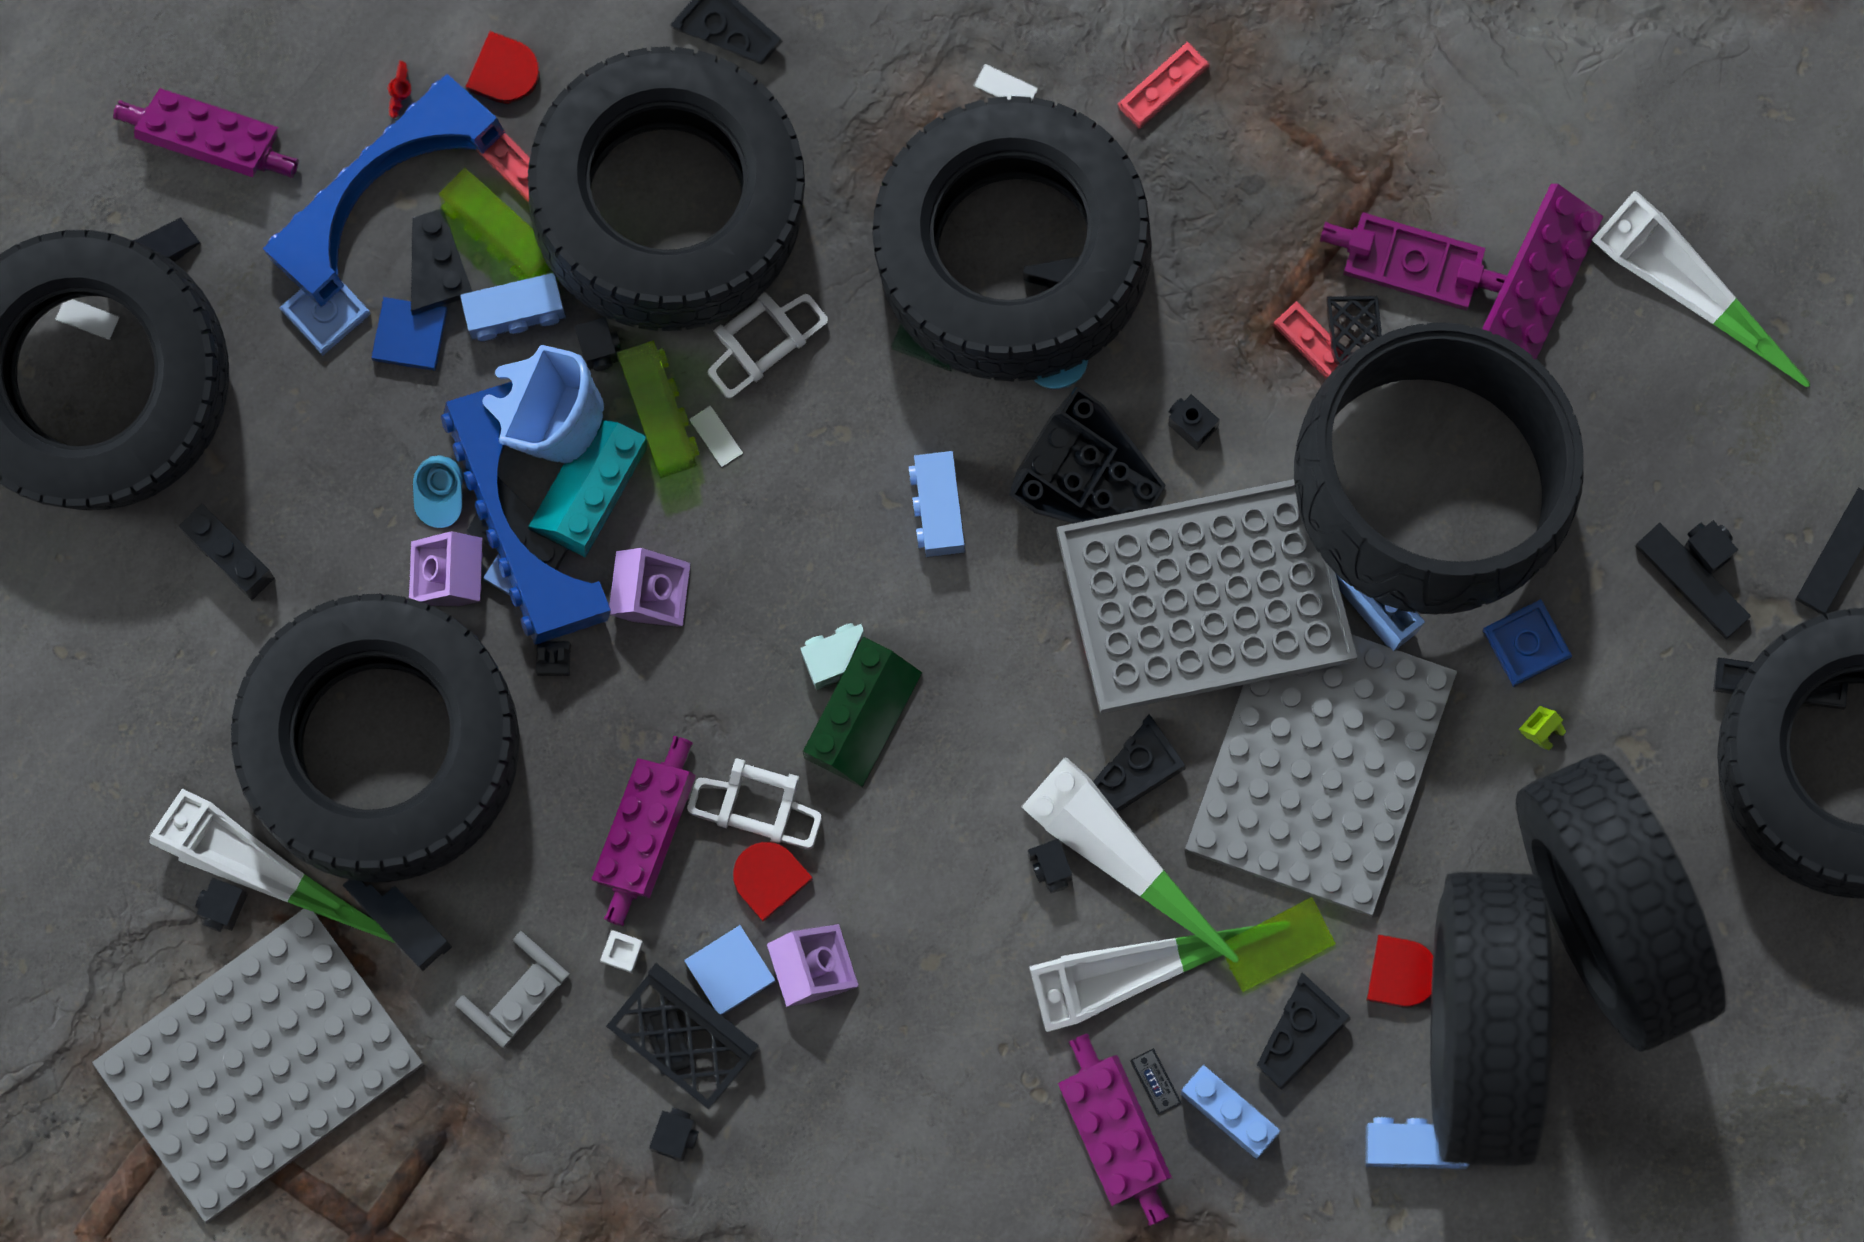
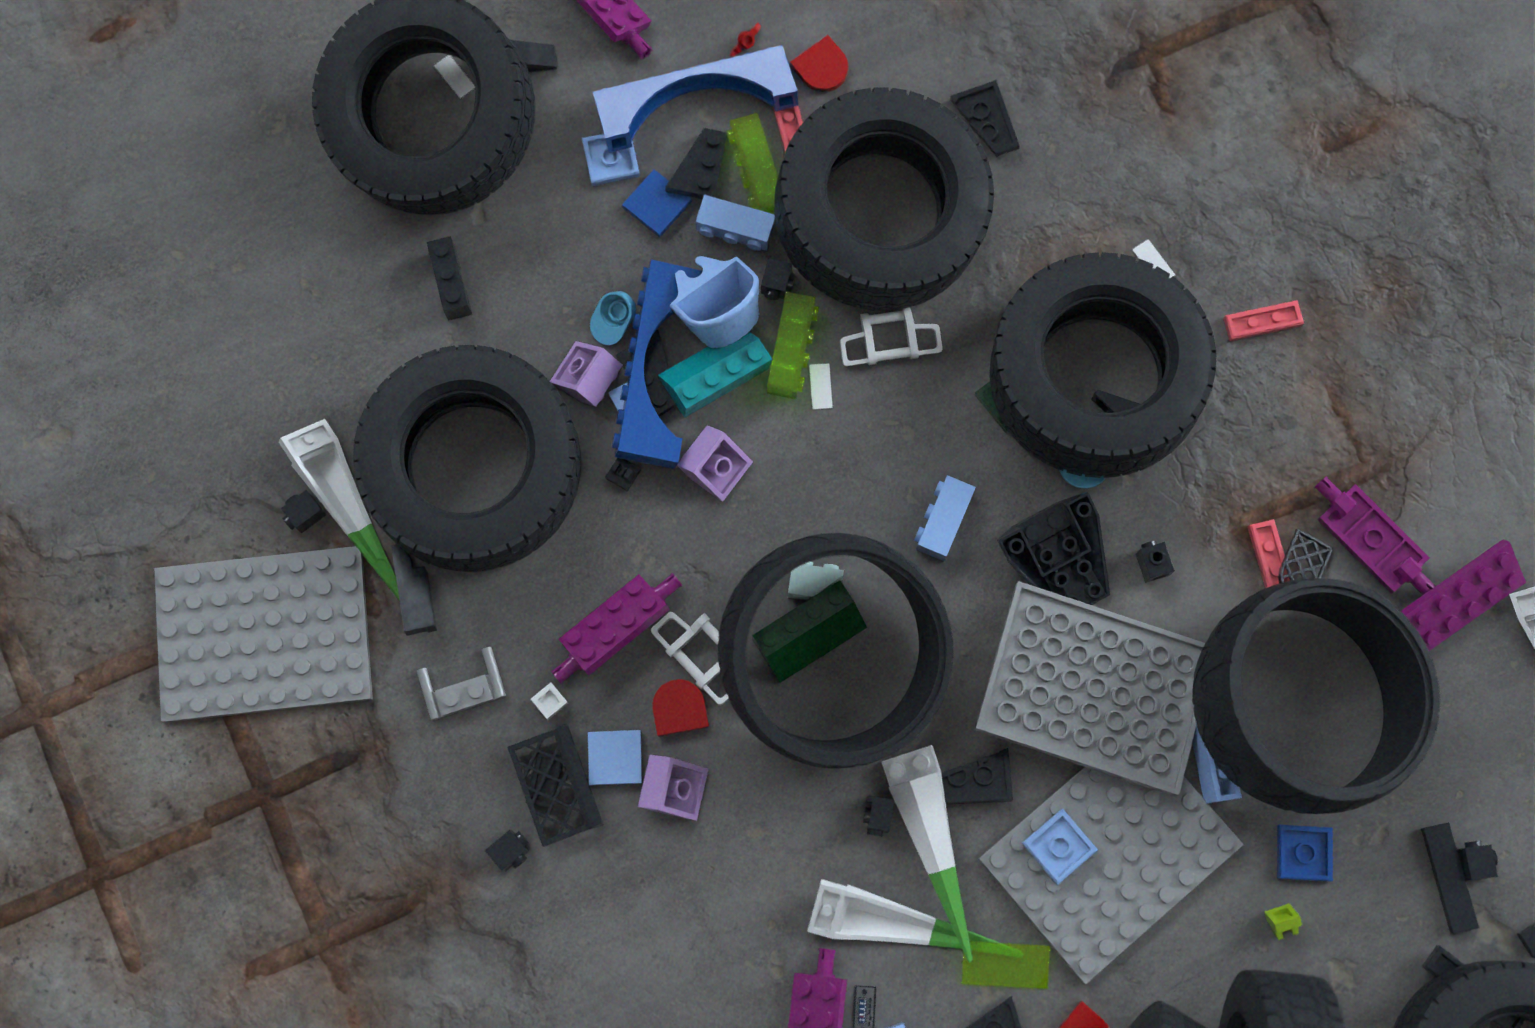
camera: 25 degrees right, 0 degrees up
(1018, 674) = (931, 672): none -> black tyre
(1263, 785) = (1059, 846): none -> light blue tile

